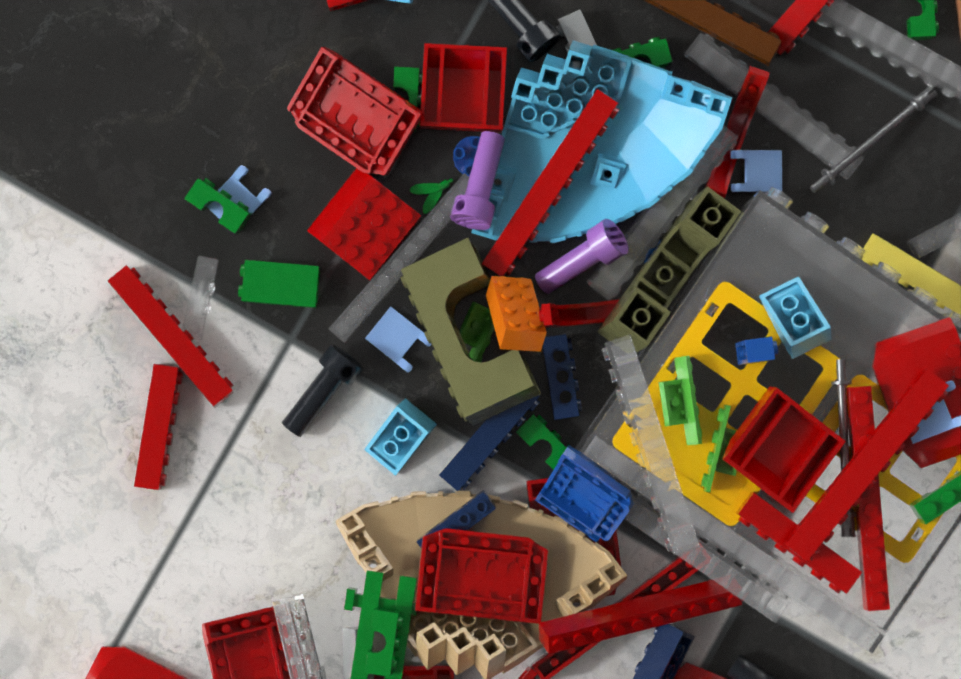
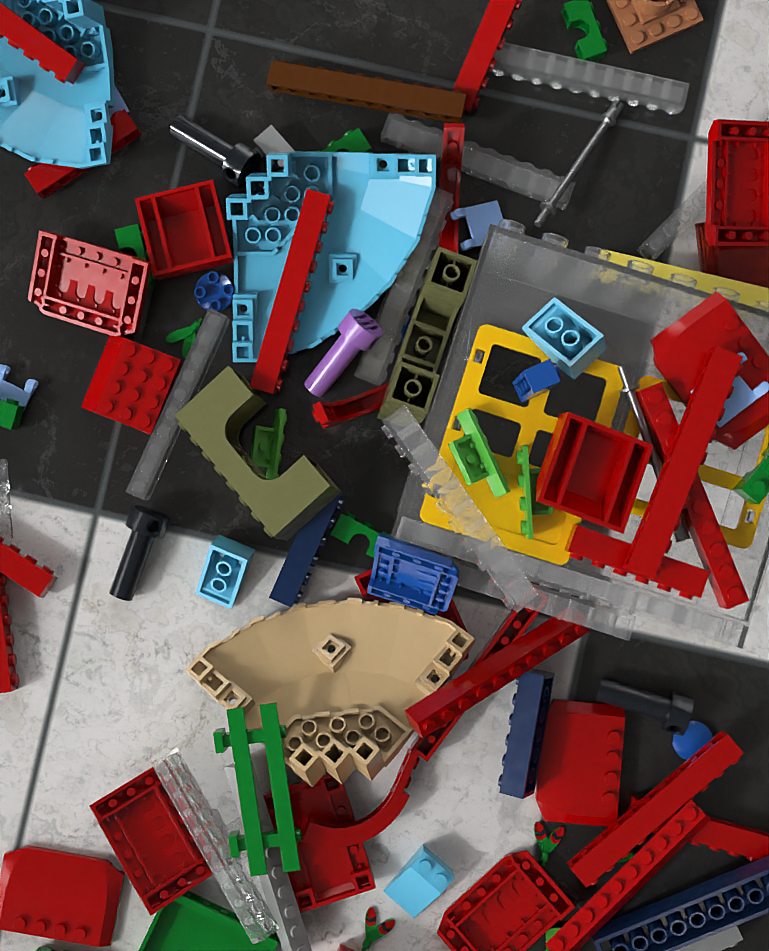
camera: 30 degrees left, 0 degrees up
(279, 283) = (69, 463): green brick -> none
(382, 661) = (260, 756): green arch -> none
(395, 336) = (192, 480): light blue flag -> none
(466, 515) = (299, 638): dark blue brick -> none
(474, 208) = (225, 337): medium lavender piece -> none
(482, 575) = (337, 681): red slope -> none
(515, 313) = (293, 423): orange brick -> none
(560, 409) = (349, 439): dark blue brick -> none

